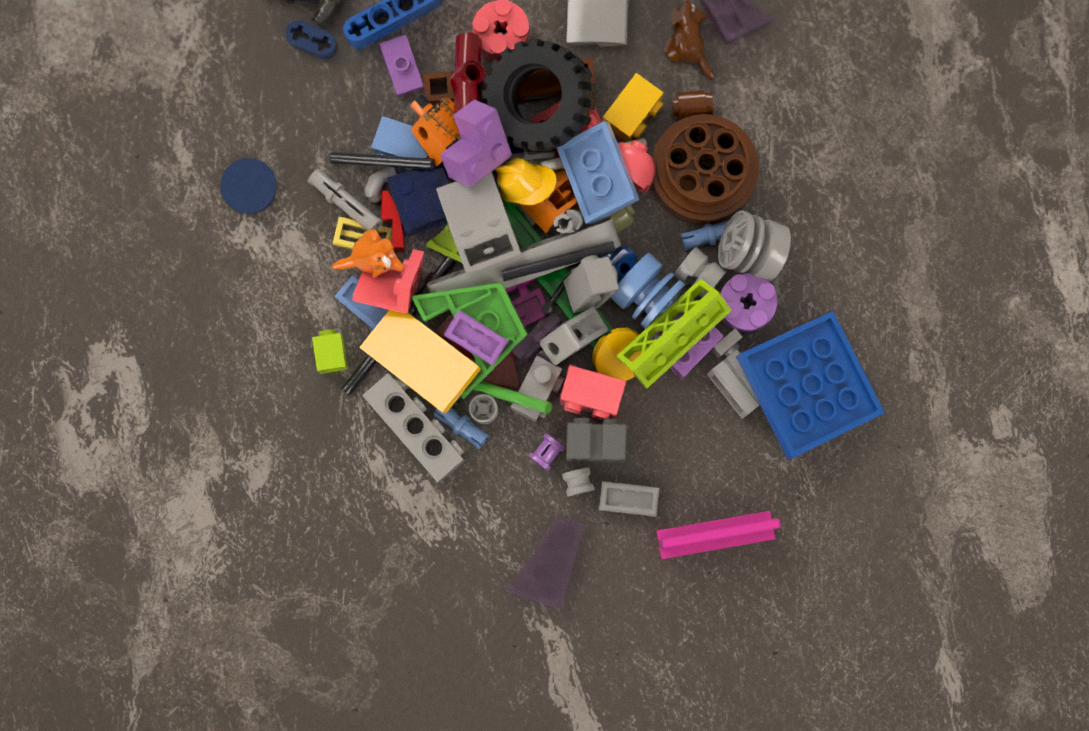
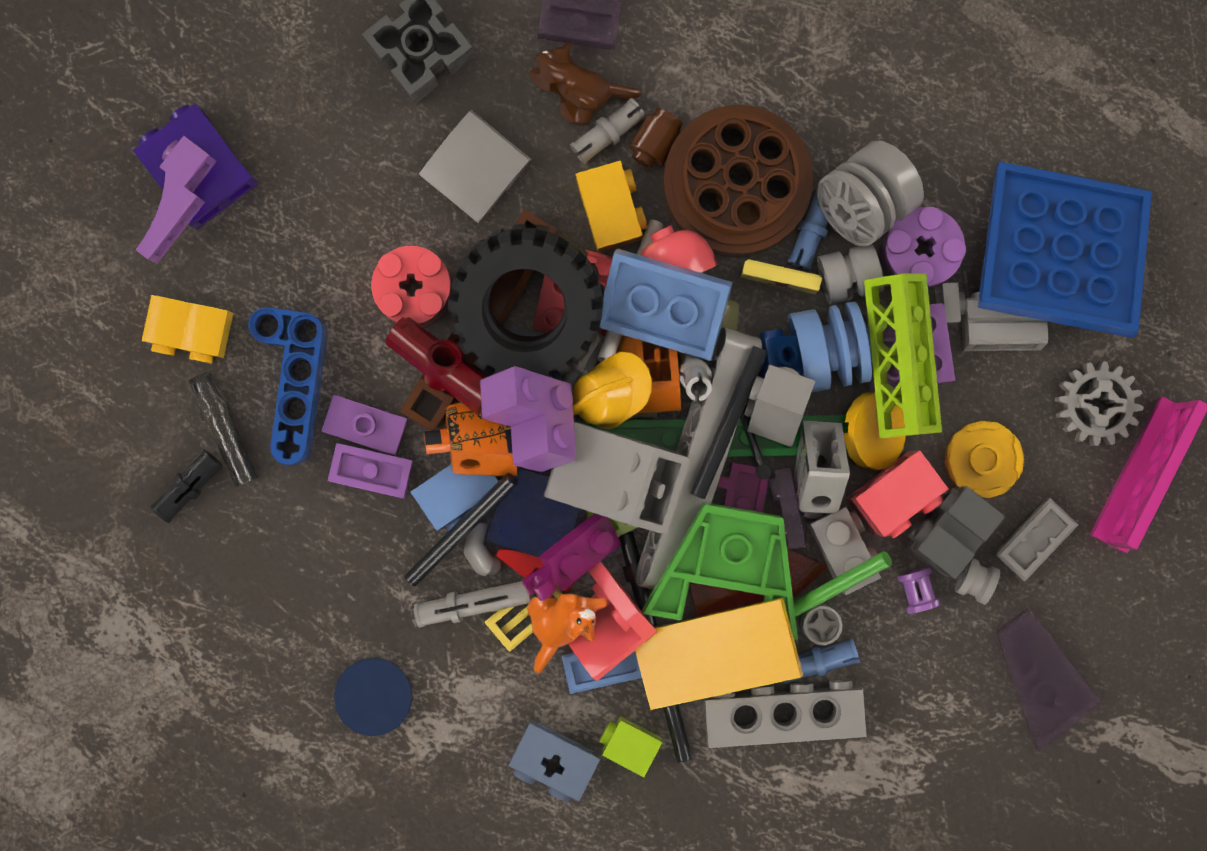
camera: 55 degrees left, 5 degrees up
(298, 328) = (575, 758): none -> sand blue brick
(314, 34) = (254, 495): dark blue beam -> none
(377, 87) = (370, 470): none -> medium lavender plate
(415, 233) = (573, 556): none -> magenta plate
(476, 337) = (746, 577): medium lavender plate -> none
(653, 434) = (984, 458): none -> yellow tile
(668, 235) = (781, 276): none -> light yellow tile
(676, 75) = (608, 131): none -> light grey pin
(729, 463) = (1101, 388): none -> light grey gear

